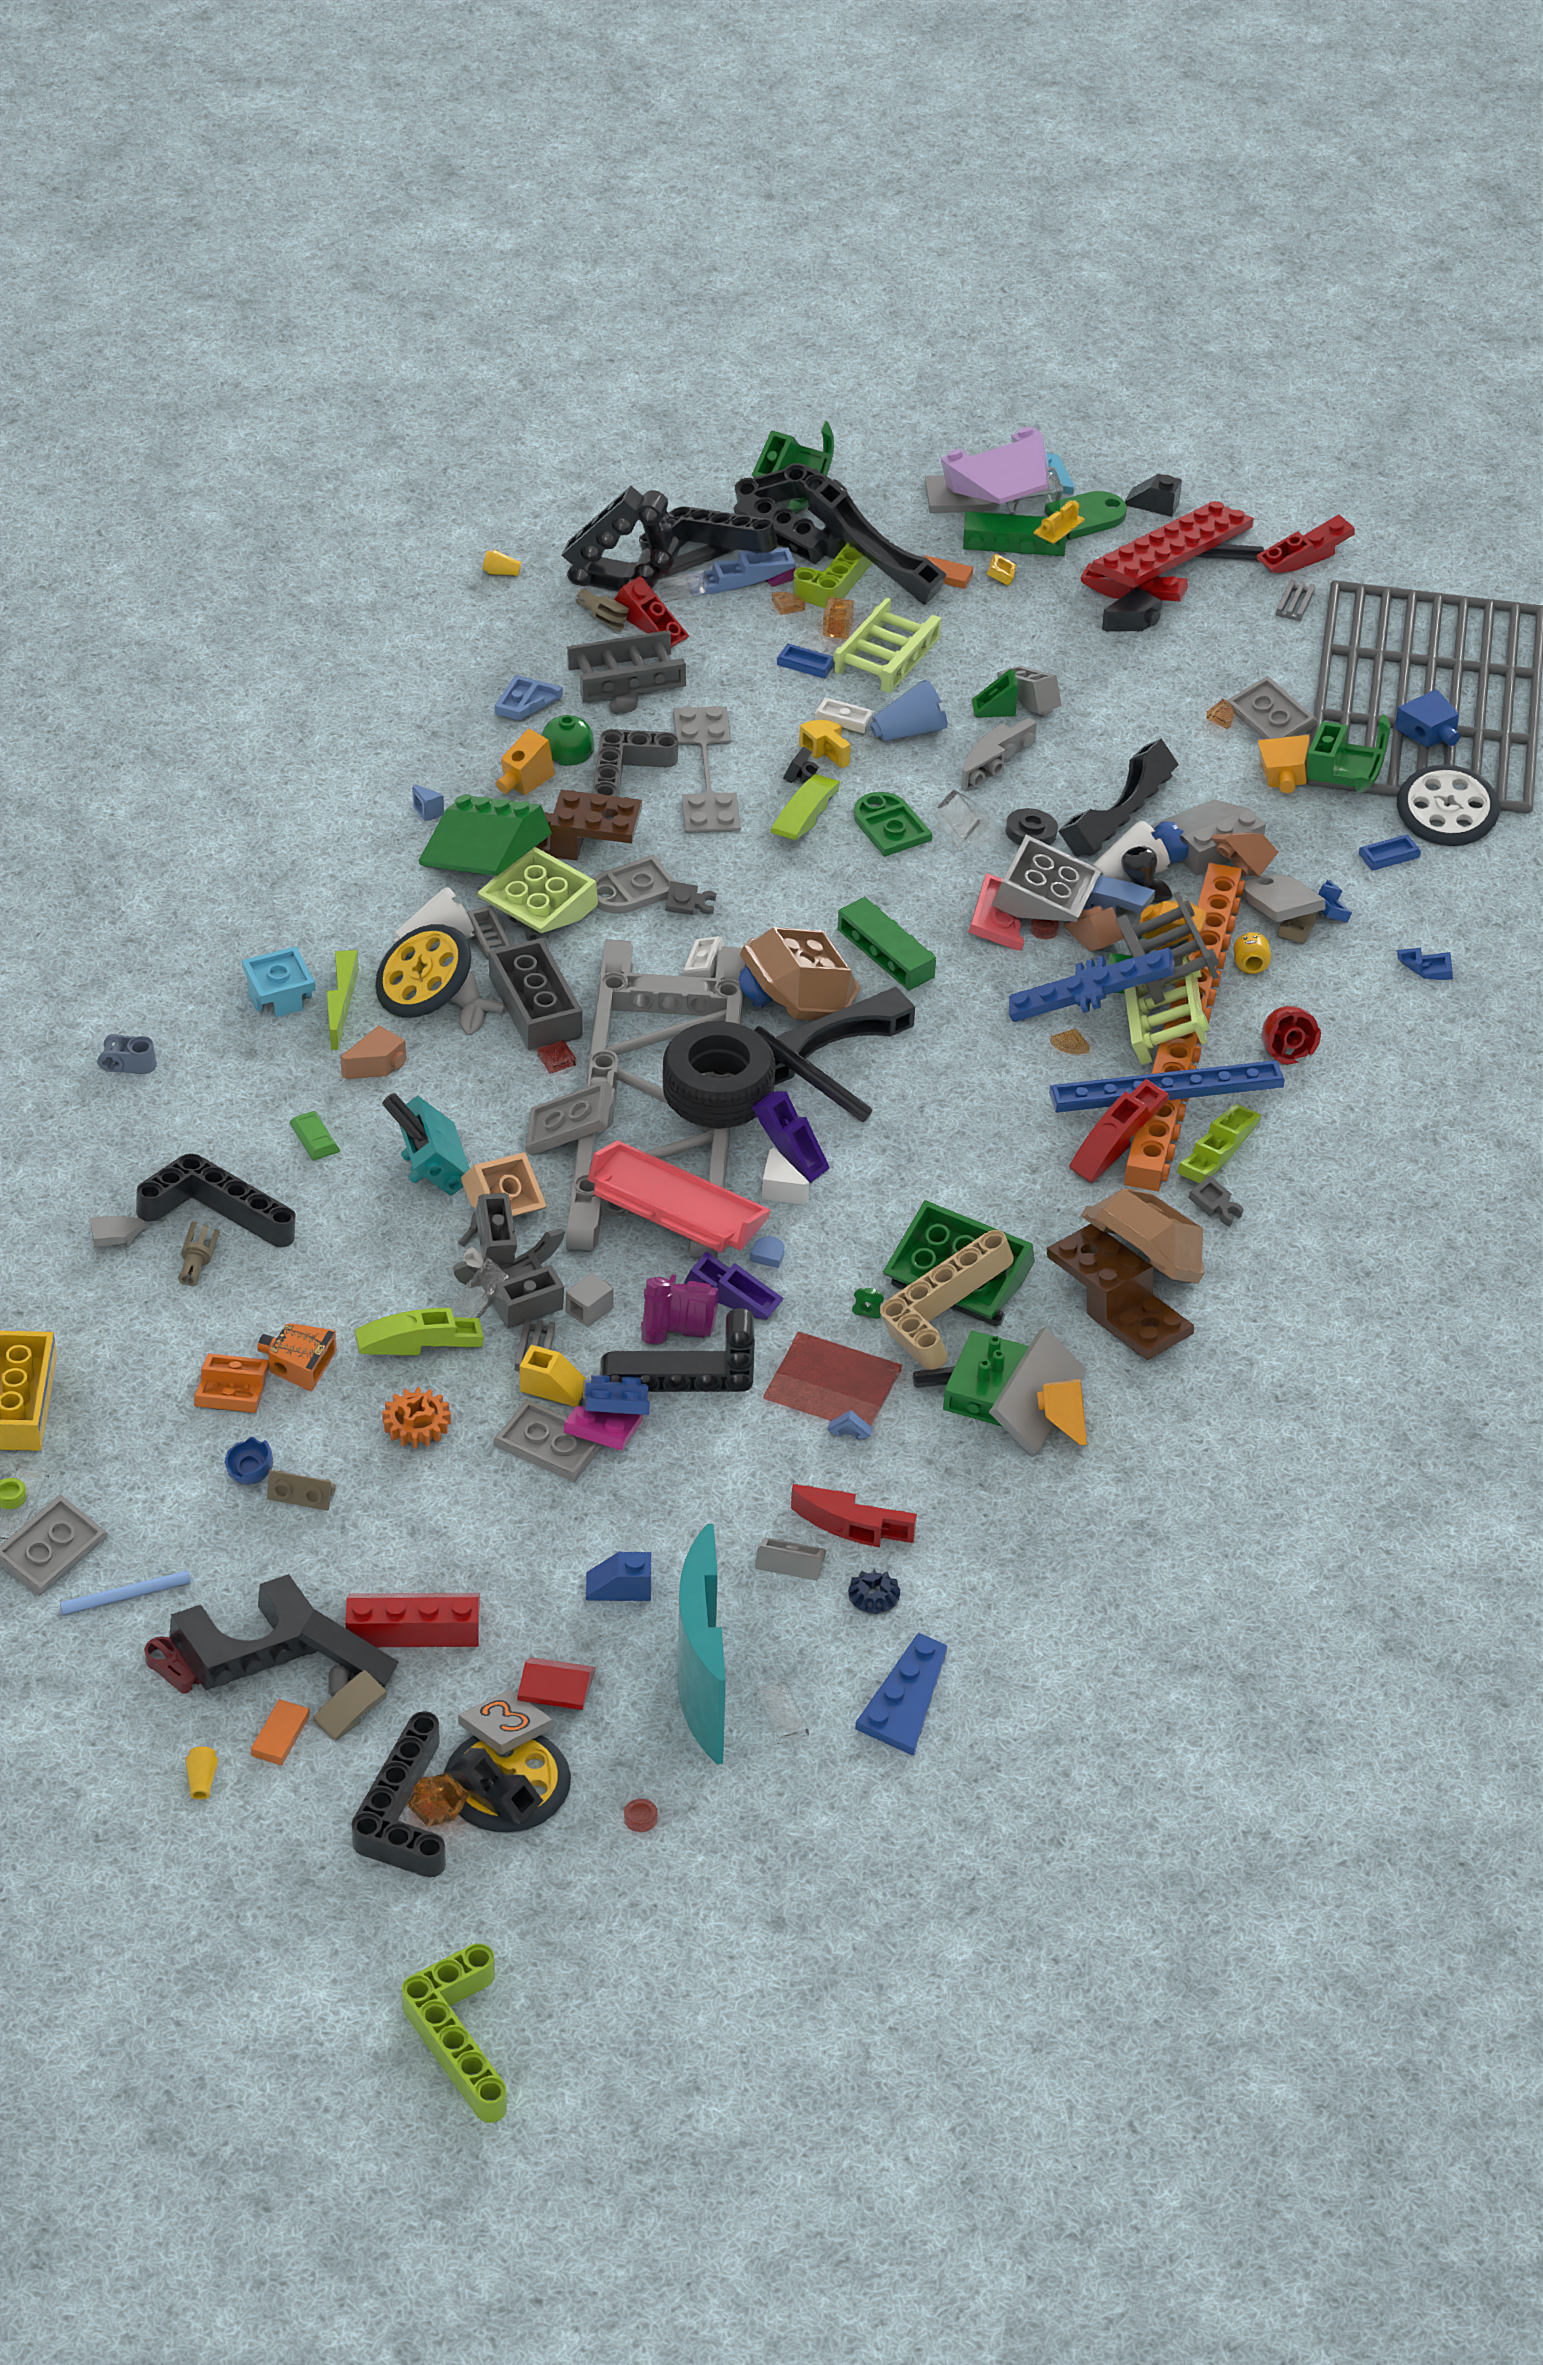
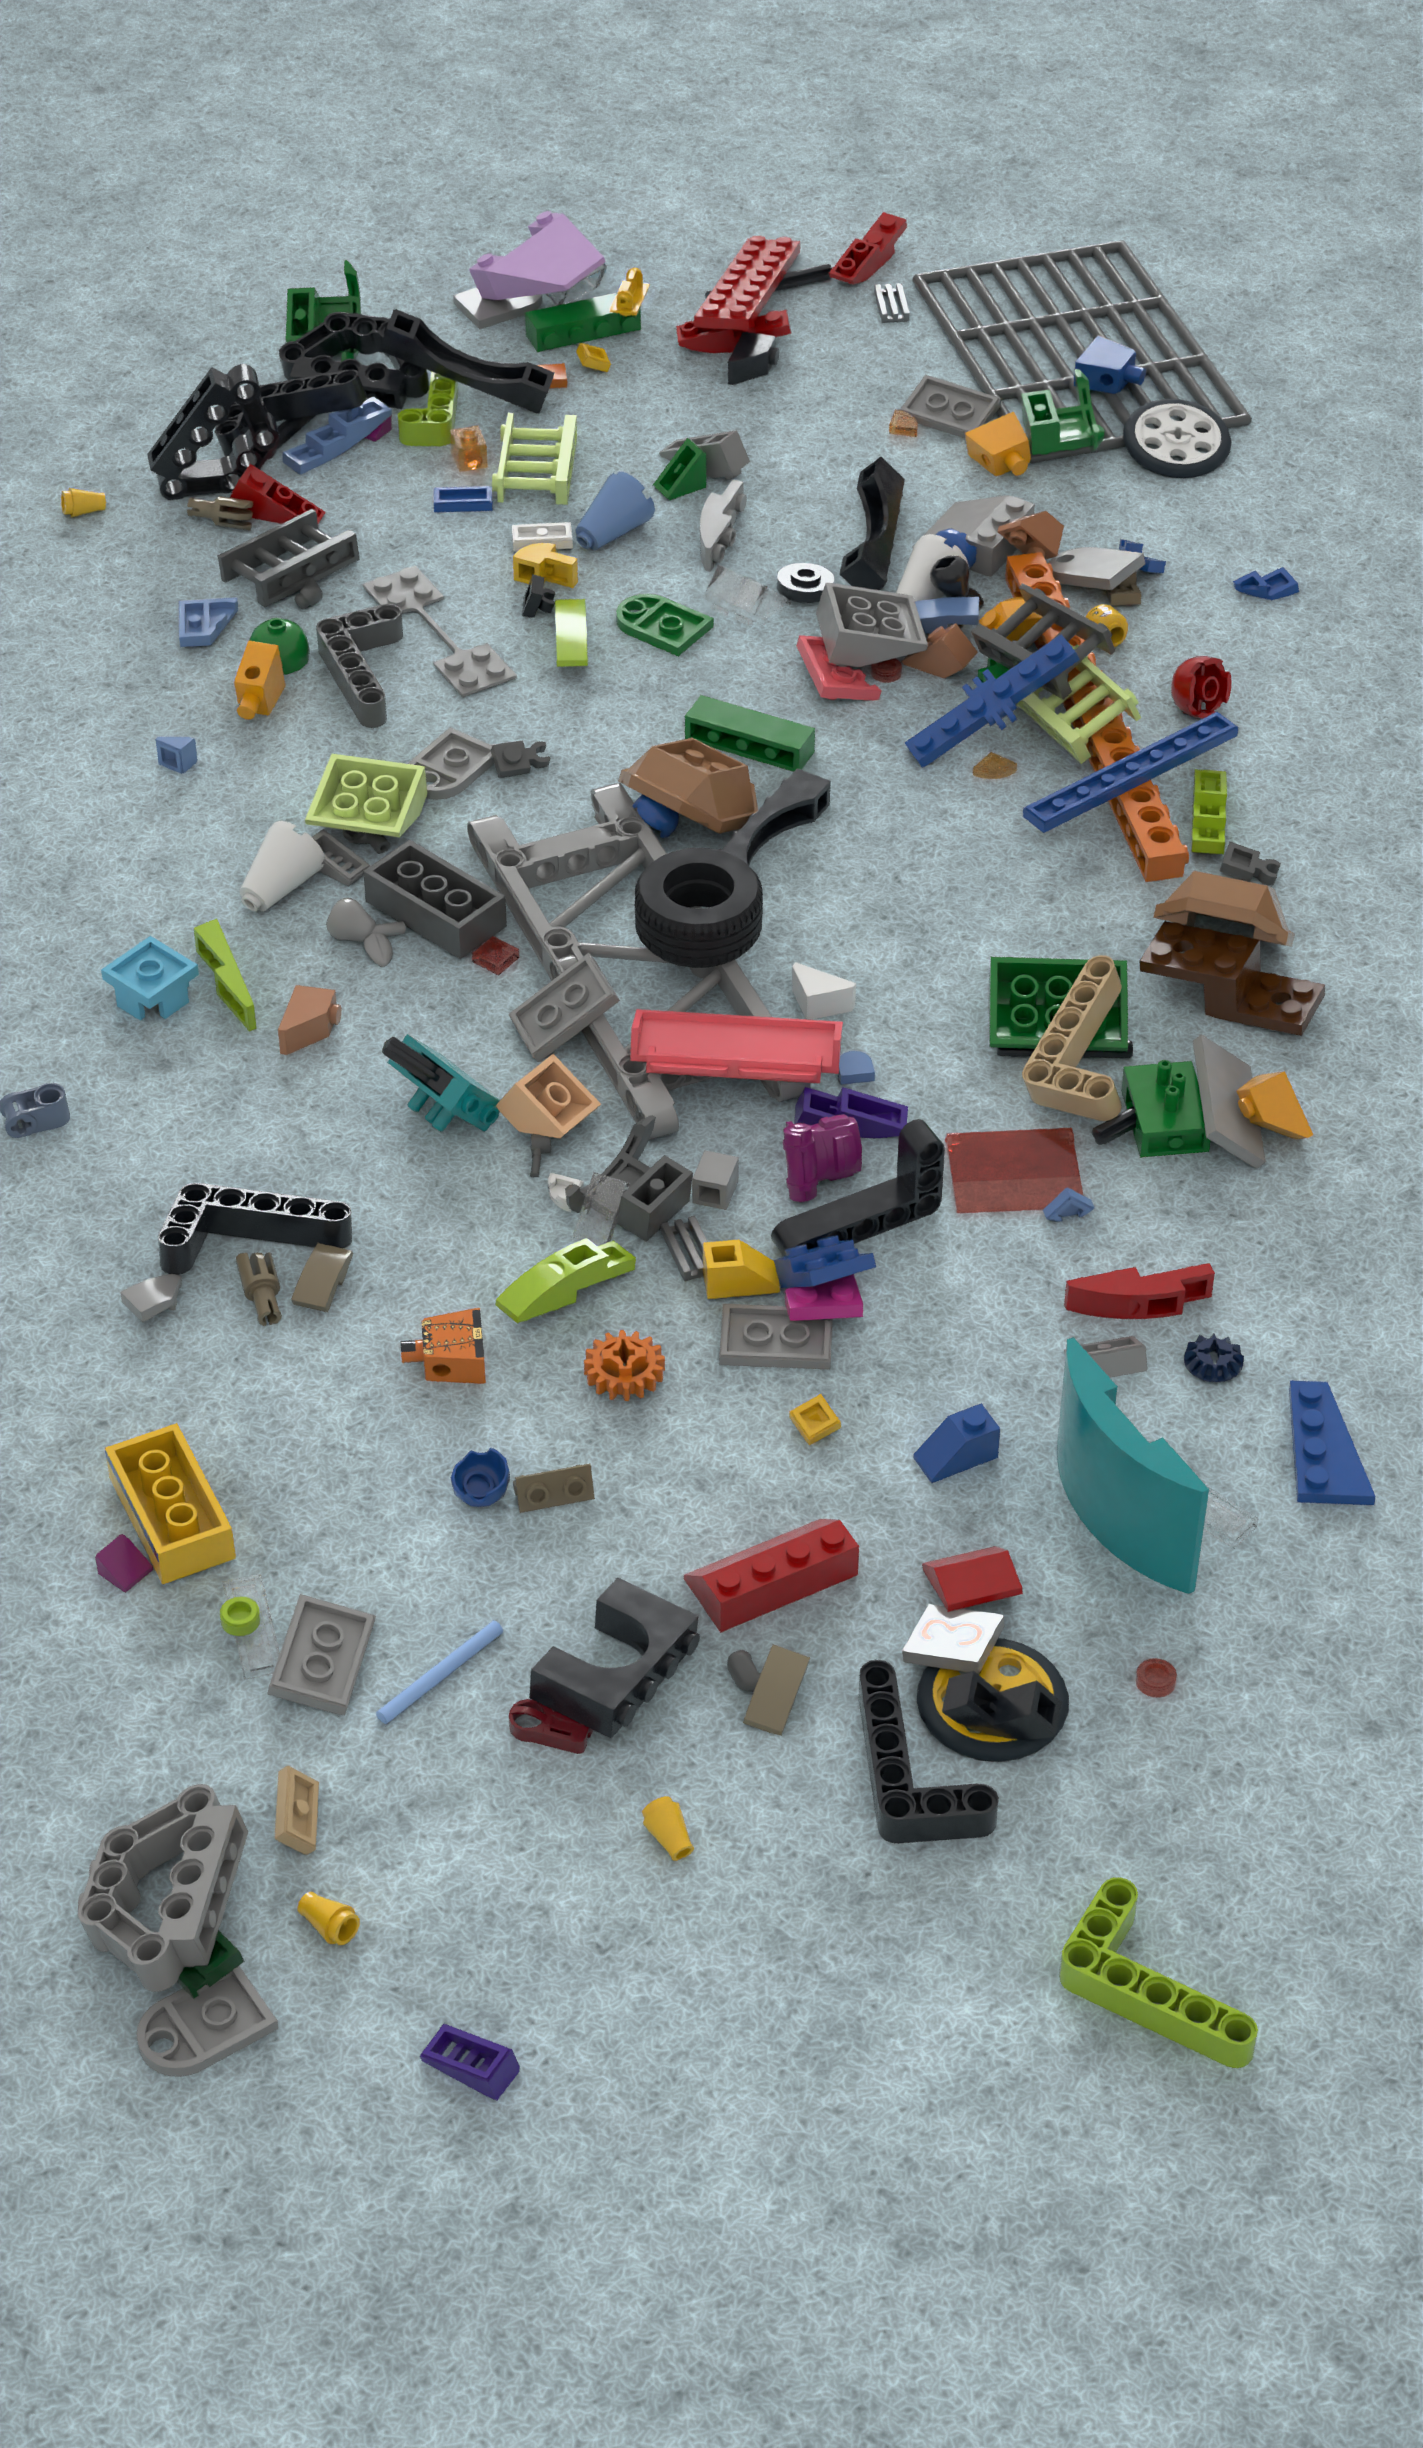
camera: 25 degrees left, 0 degrees up
(231, 1383) = (395, 1406): orange slope -> none
(249, 1258) = (321, 1276): none -> dark tan slope
(280, 1732) = (719, 1750): orange tile -> none
(314, 1135) = (296, 1122): bright green tile -> none
(347, 1648) = (734, 1629): black tile -> none
(437, 1799) = (948, 1748): clear orange brick -> none
(452, 944) = (282, 885): wedge -> none
(485, 835) = (271, 760): green slope -> none
(496, 1228) = (580, 1140): dark grey brick -> none
(529, 1515) = (815, 1419): none -> yellow tile
(583, 816) = (349, 718): reddish brown bracket -> none
(681, 586) = (291, 464): clear tile -> none
(703, 957) = (576, 807): white plate -> none
(787, 602) = (403, 451): clear orange tile -> none
(791, 1134) = (800, 940): dark purple slope -> none
(816, 1077) = (803, 886): black axle -> none
(871, 1296) = (991, 1072): green plate -> none
(1094, 510) = (654, 272): green tile -> none
(1115, 1128) = (1116, 829): red slope -> none
(1157, 495) = (691, 247): black slope -> none
(1389, 852) = (1154, 498): blue tile -> none

